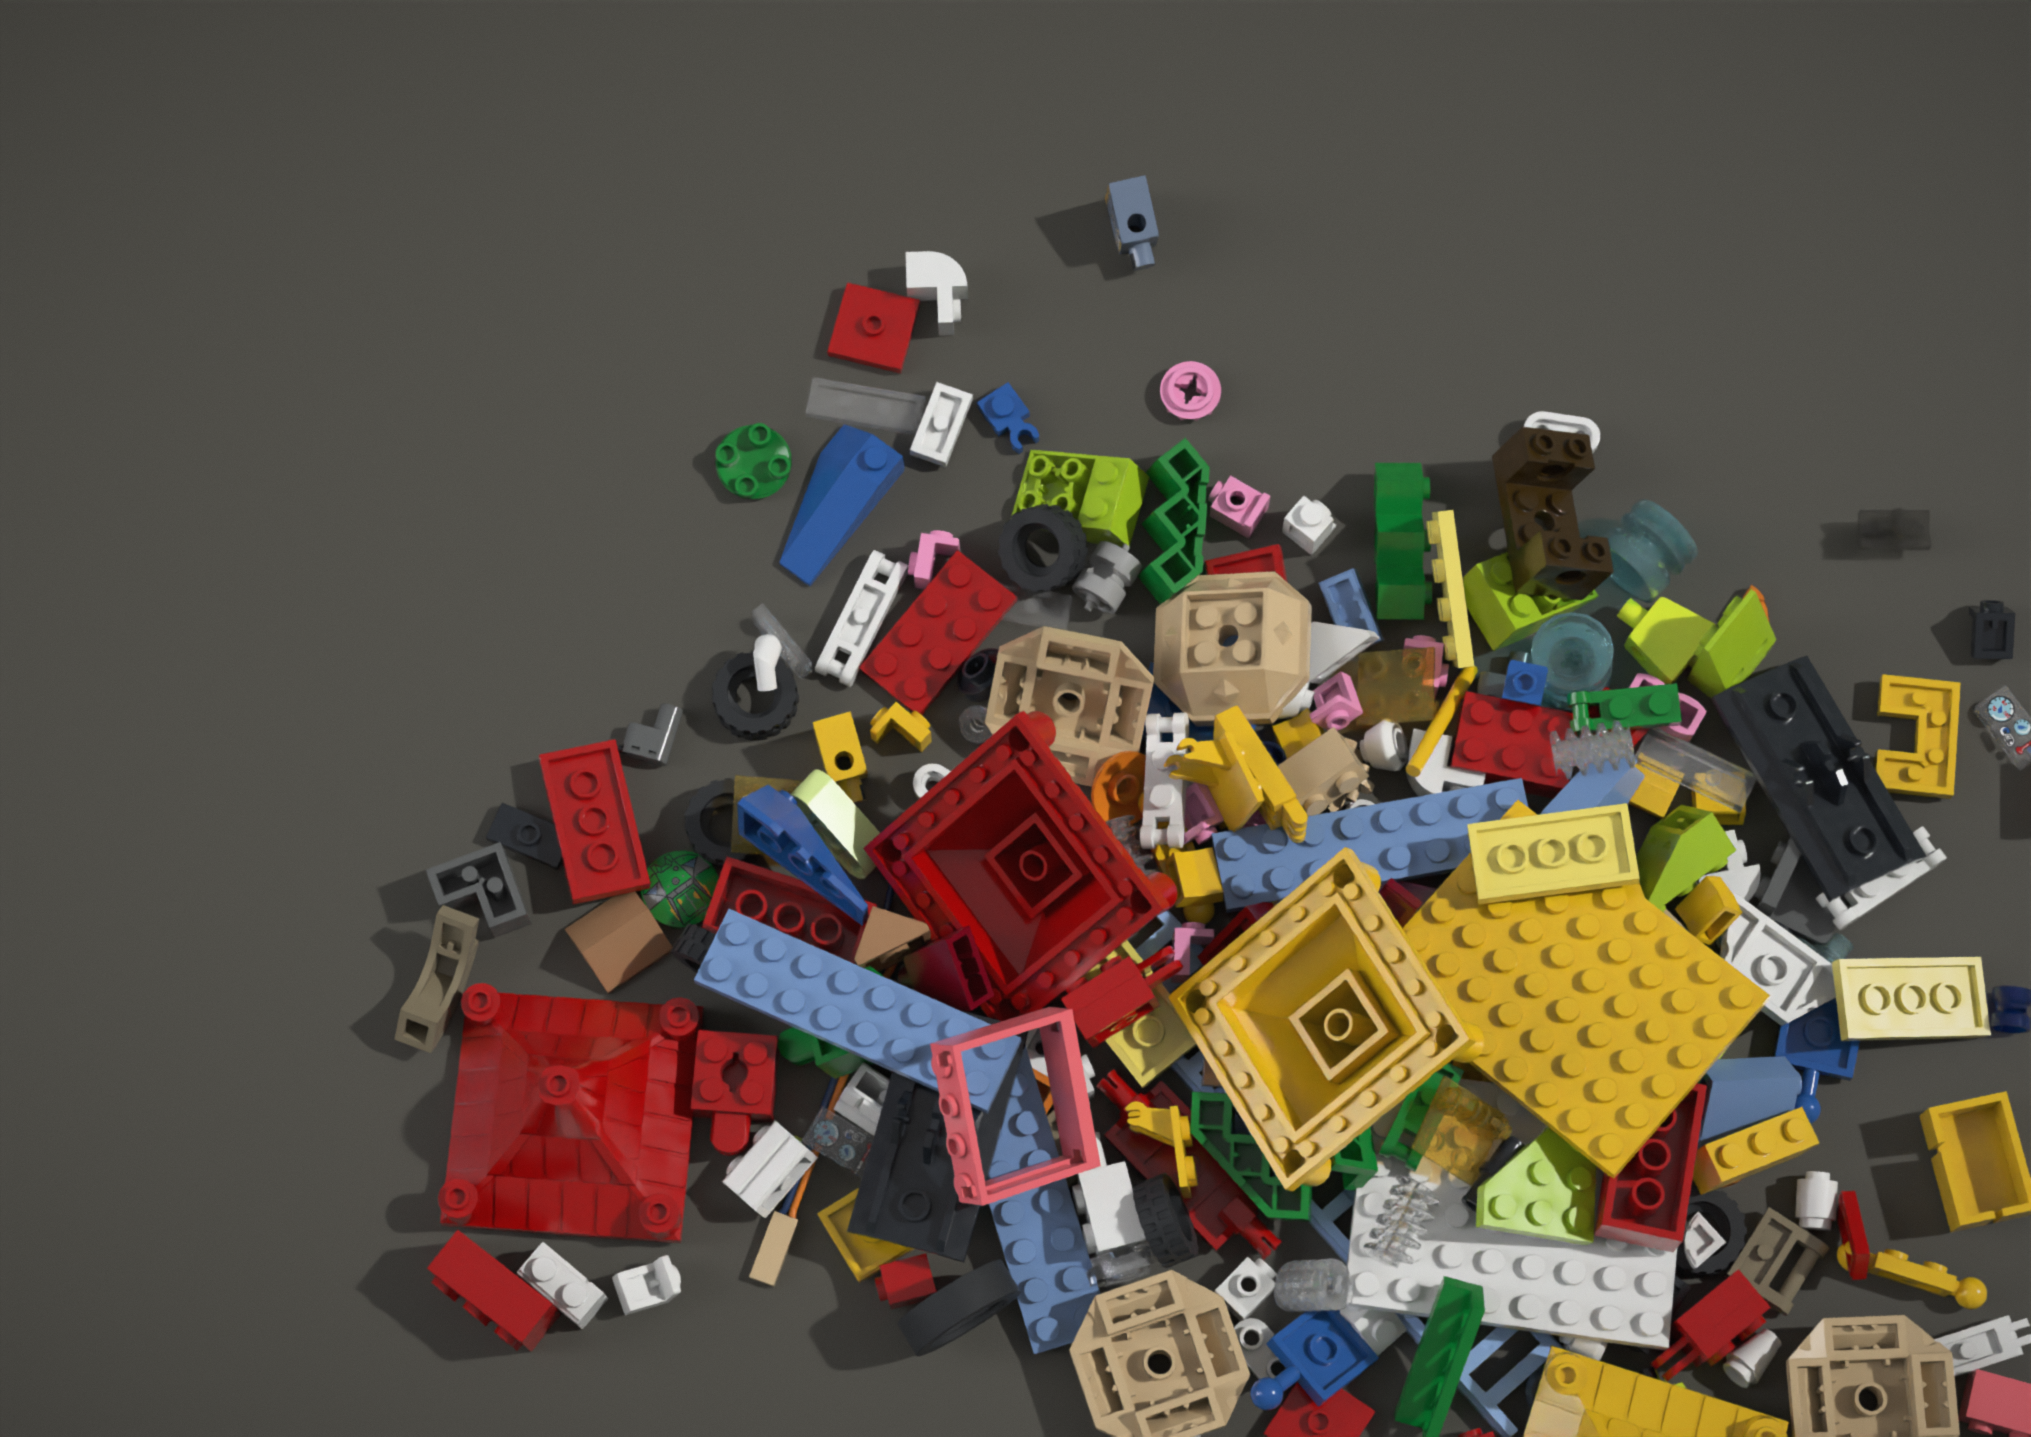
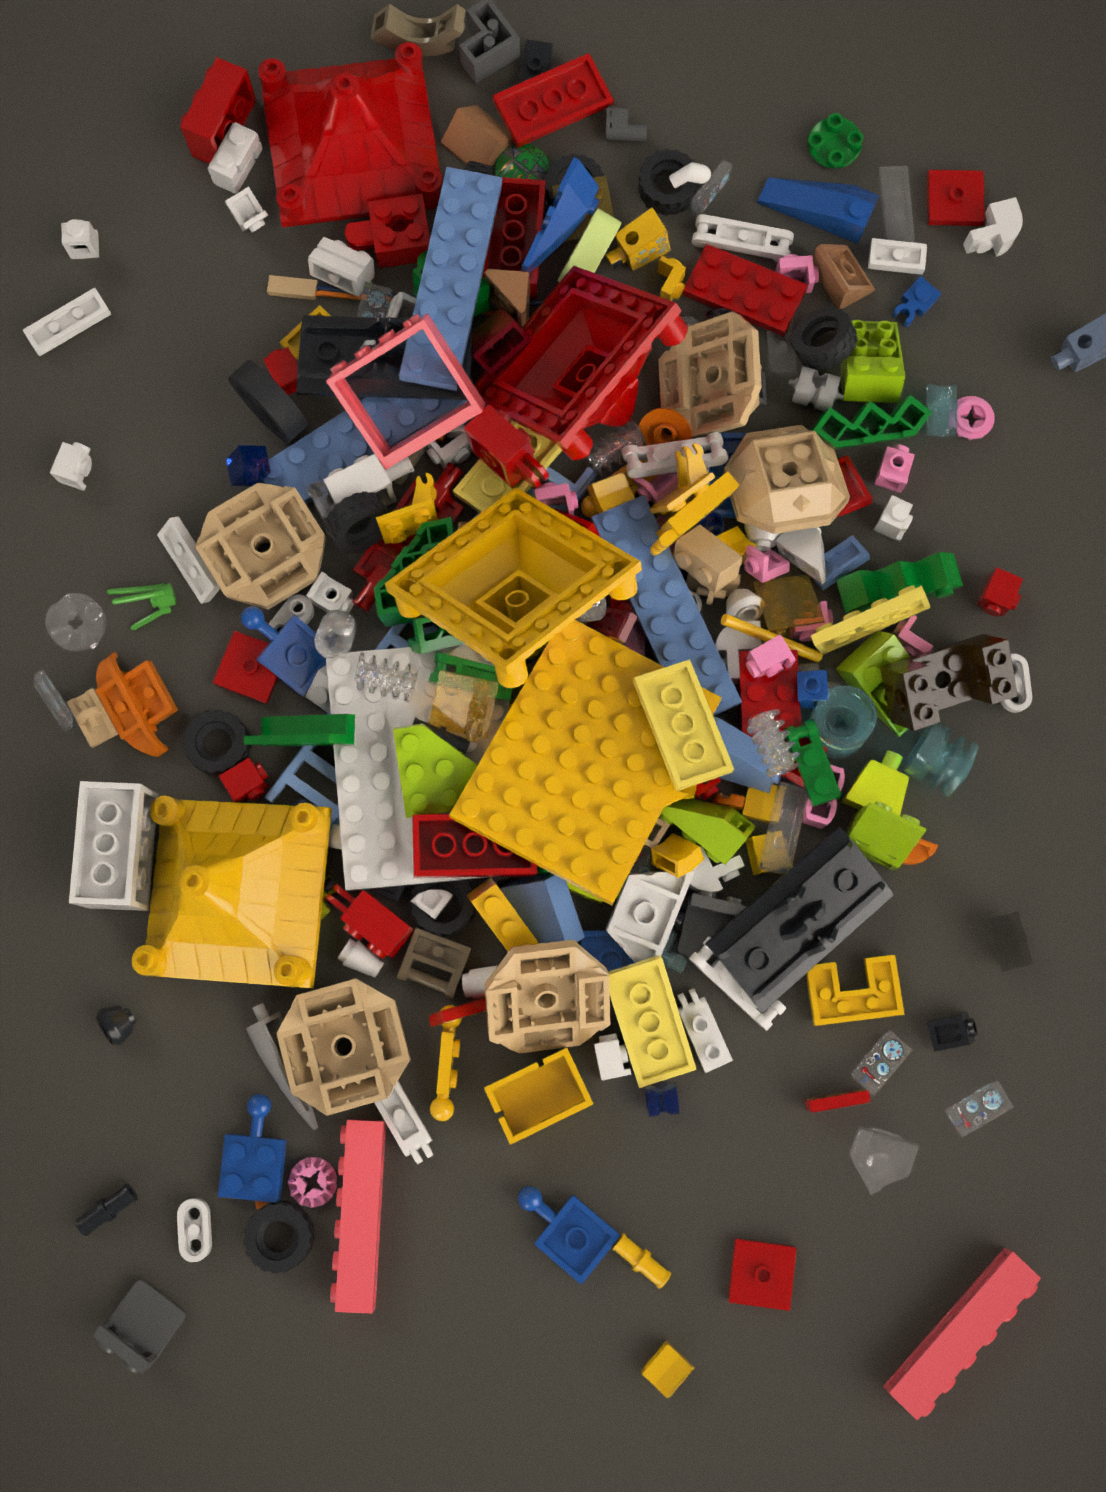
camera: 75 degrees right, 5 degrees up
(950, 501) = (841, 274): none -> medium nougat slope
(1036, 1361) = (248, 465): none -> clear blue brick
(1173, 423) = (943, 404): none -> clear light blue hips
(1439, 420) = (1000, 593): none -> red brick
(1477, 726) = (769, 658): none -> bright pink brick
(1484, 547) = (911, 642): none -> bright pink bracket
(1642, 826) = (734, 800): none -> orange tile
(1861, 1114) = (547, 997): none -> tan piece
(1933, 937) = (703, 1032): none -> white hinge
(1945, 1061) = (611, 1057): none -> white brick

